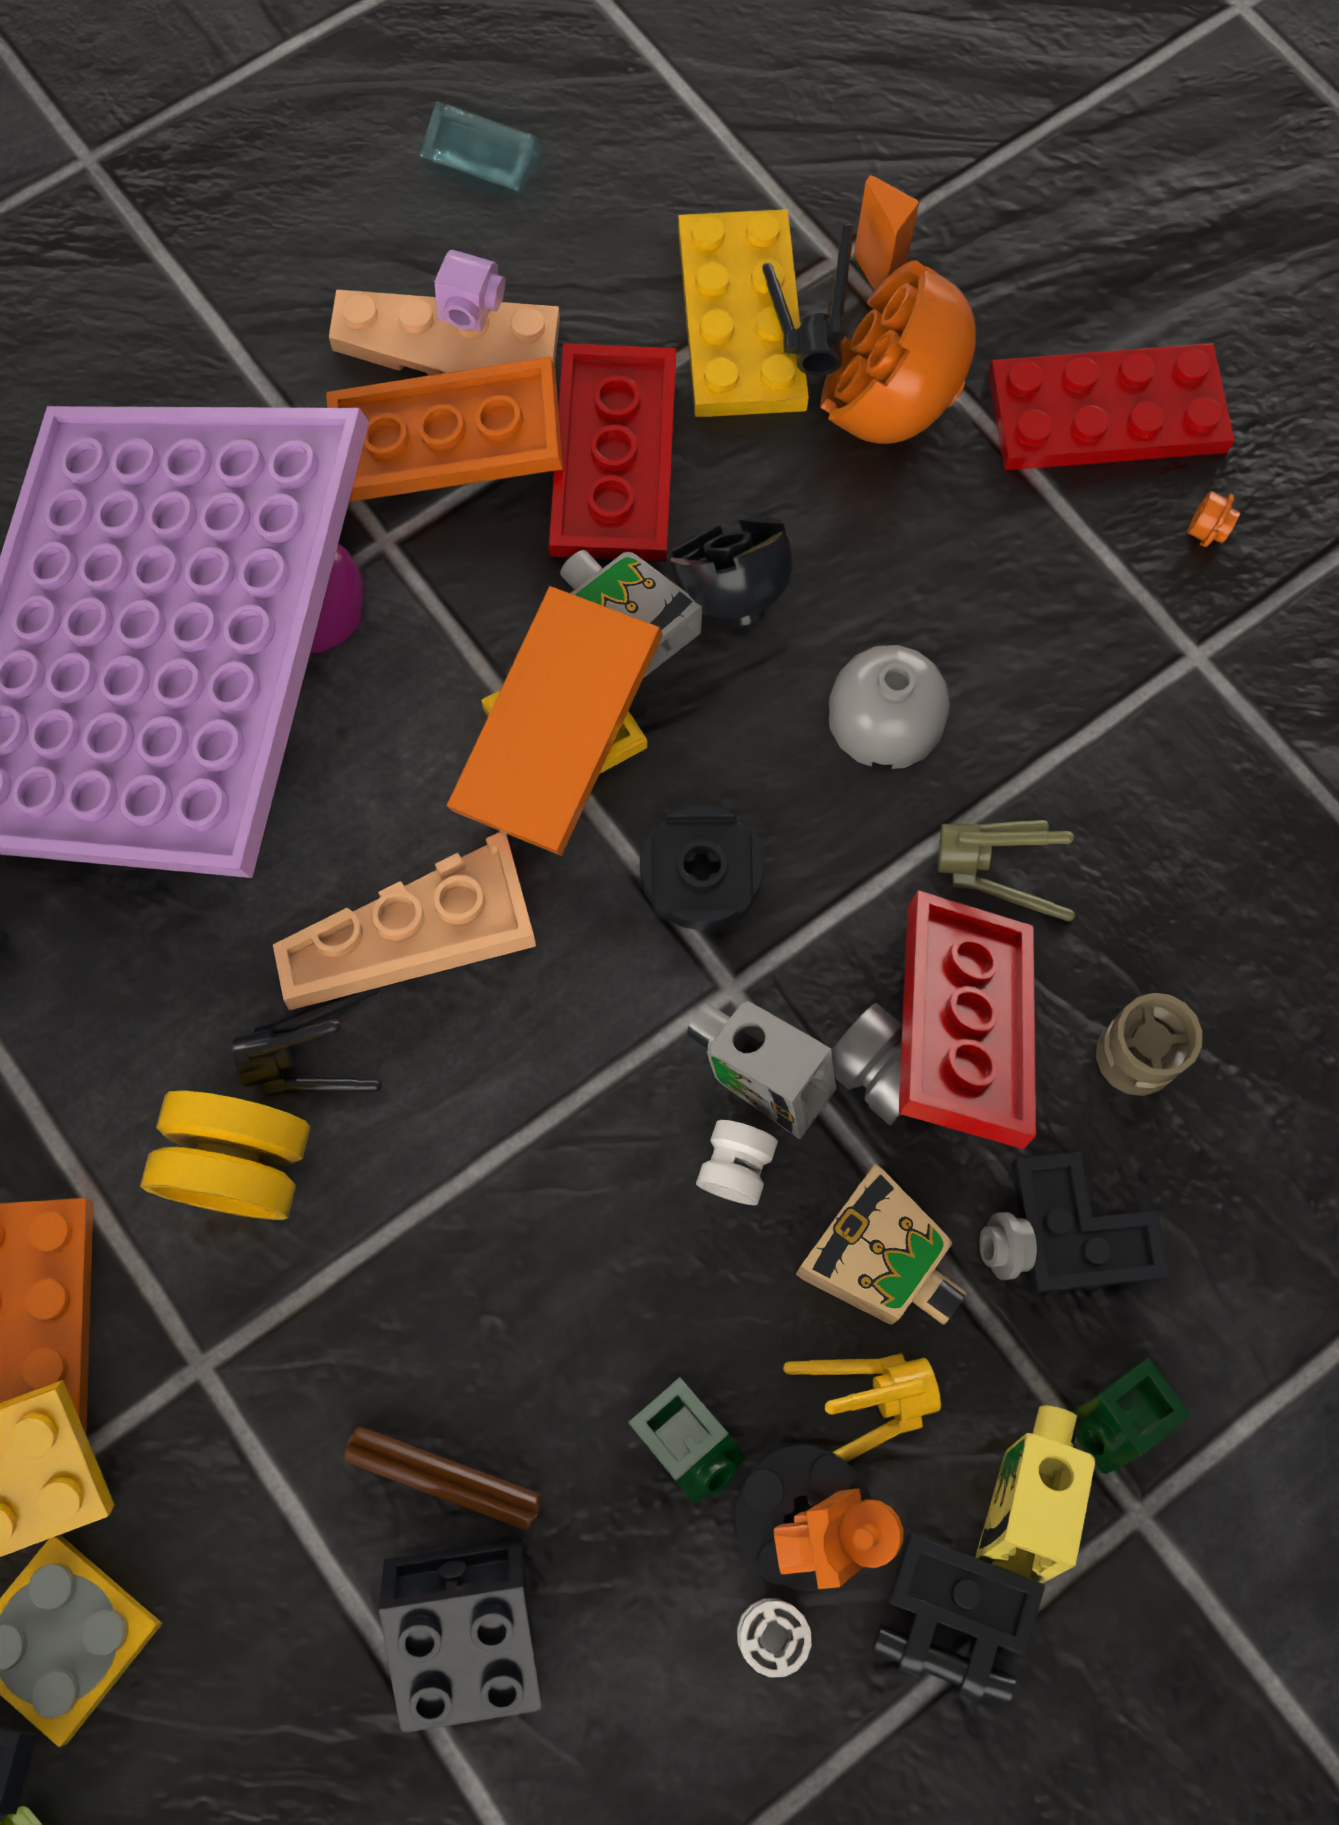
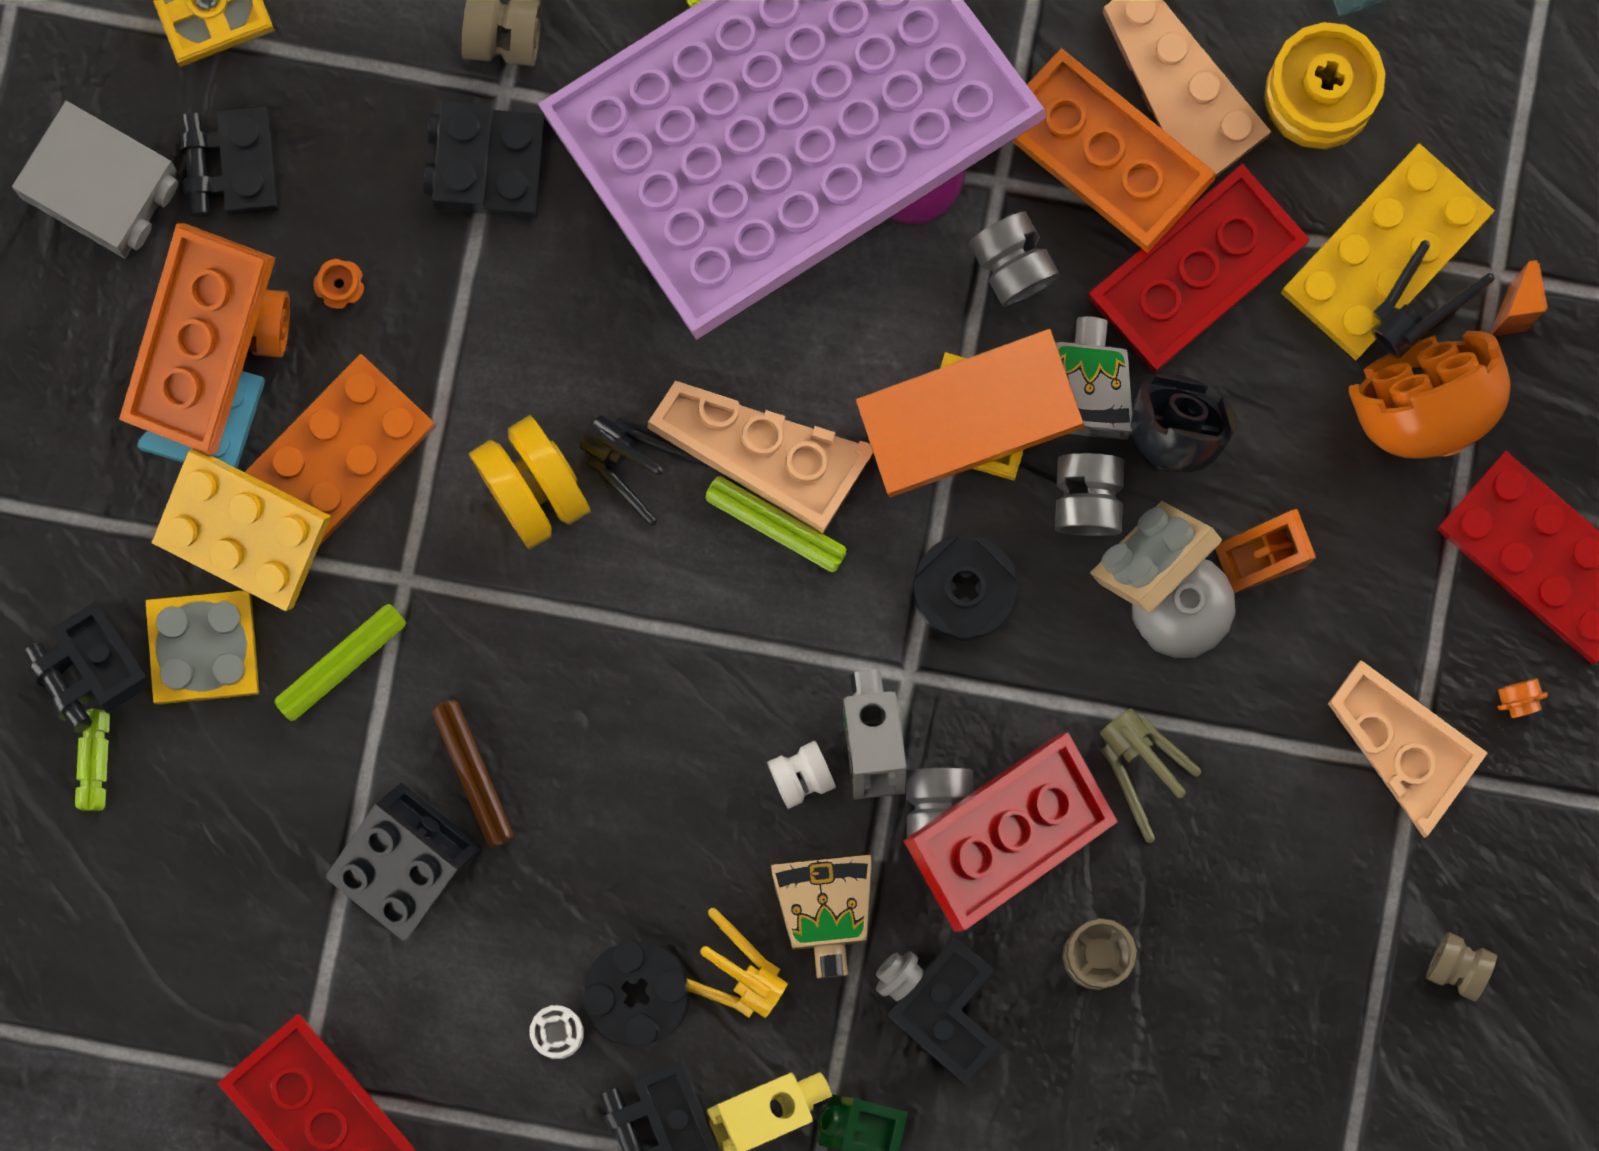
camera: 45 degrees right, 10 degrees up
(211, 1511) = (340, 662): none -> lime axle
(450, 572) = (1014, 259): none -> flat silver wheel
(467, 290) = (1214, 72): lavender plate -> none
(486, 978) = (775, 523): none -> lime axle
(563, 232) = (1328, 56): none -> yellow wheel
(688, 1441) = (617, 891): bracket -> none
(714, 685) = (1089, 494): none -> flat silver wheel
(830, 682) = (1155, 556): none -> piece
(839, 1538) = (636, 1014): orange hips -> none
(908, 593) = (1266, 552): none -> orange slope
(1175, 637) = (1407, 744): none -> light nougat wing

